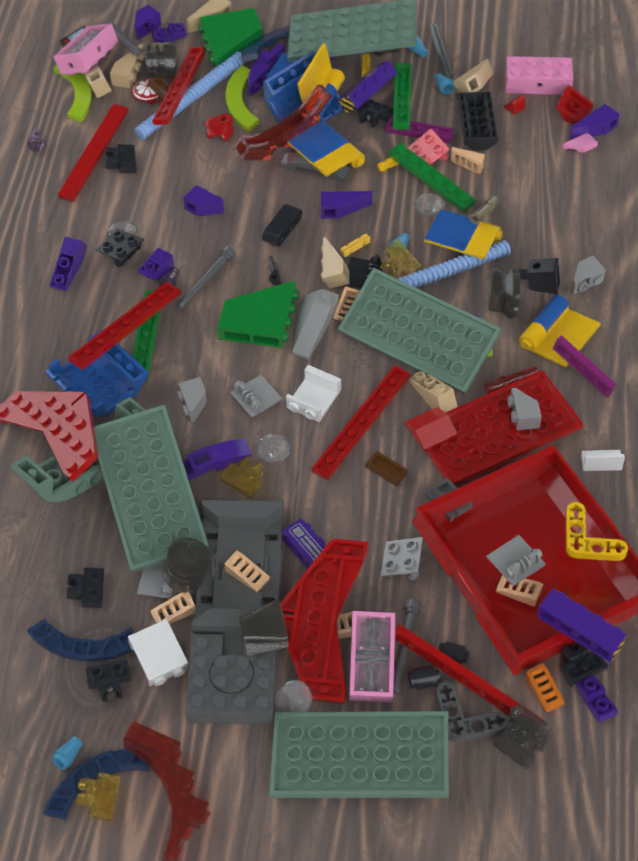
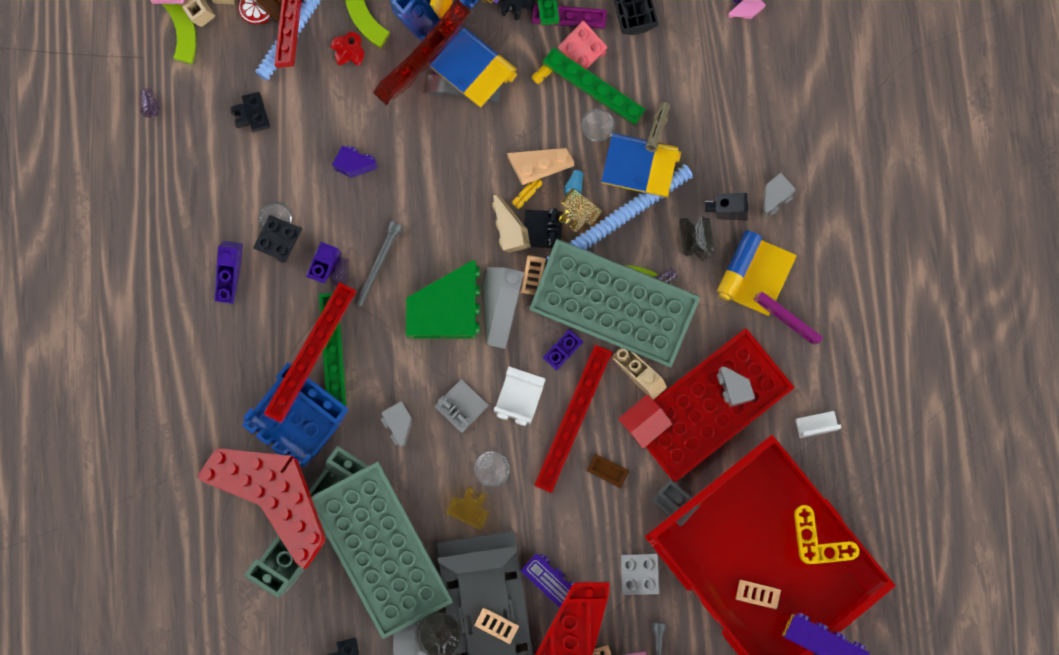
camera: 10 degrees left, 25 degrees up
(93, 153) = (216, 107): red tile -> none
(215, 457) = (437, 494): dark purple slope -> none
(274, 272) = (449, 244): black hand -> none
(282, 225) = (445, 180): black beam -> none
(341, 203) = (500, 141): dark purple slope -> none
(364, 366) = (563, 349): none -> dark purple slope
(371, 224) = (540, 163): none -> light nougat wing
(473, 160) = (632, 55): light nougat slope -> none
(503, 381) = (709, 347): clear red pin -> none
(516, 560) = (754, 579): light grey hinge -> none

